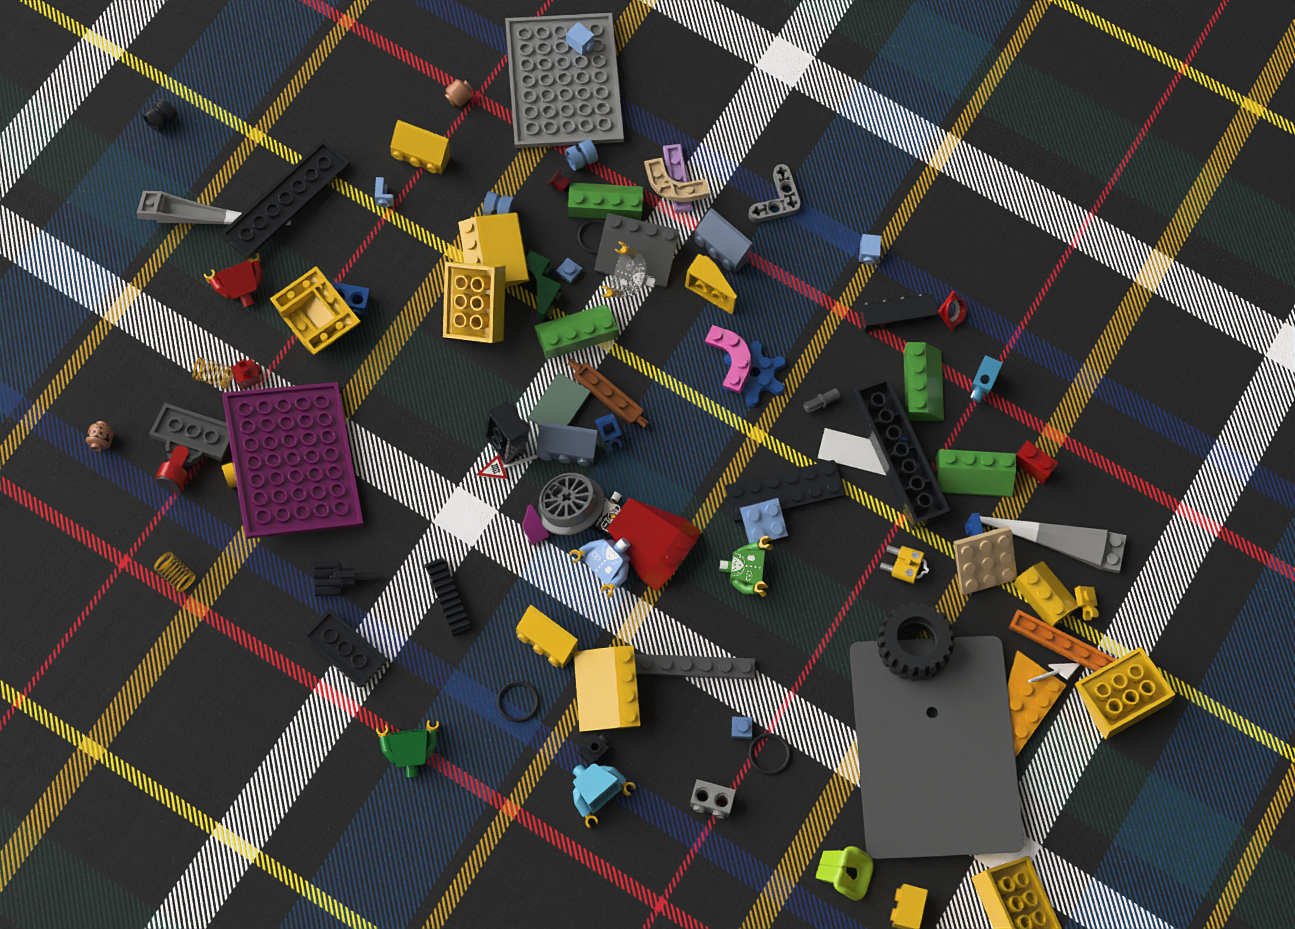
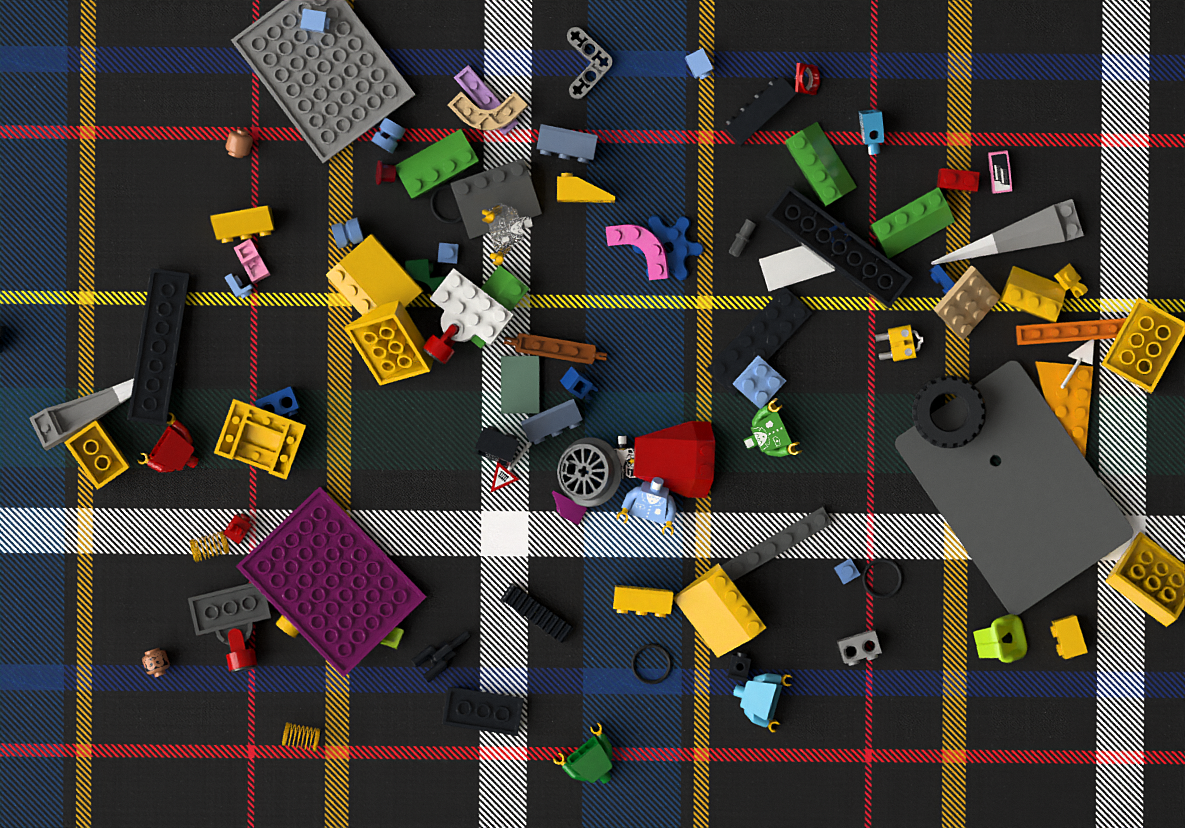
camera: 25 degrees left, 20 degrees up
(176, 245) = (97, 454): none -> yellow brick
(311, 539) = (393, 638): none -> lime plate
(406, 184) = (251, 261): none -> bright pink slope
(552, 315) = (466, 314): none -> white plate
(1075, 478) = (1000, 171): none -> slope

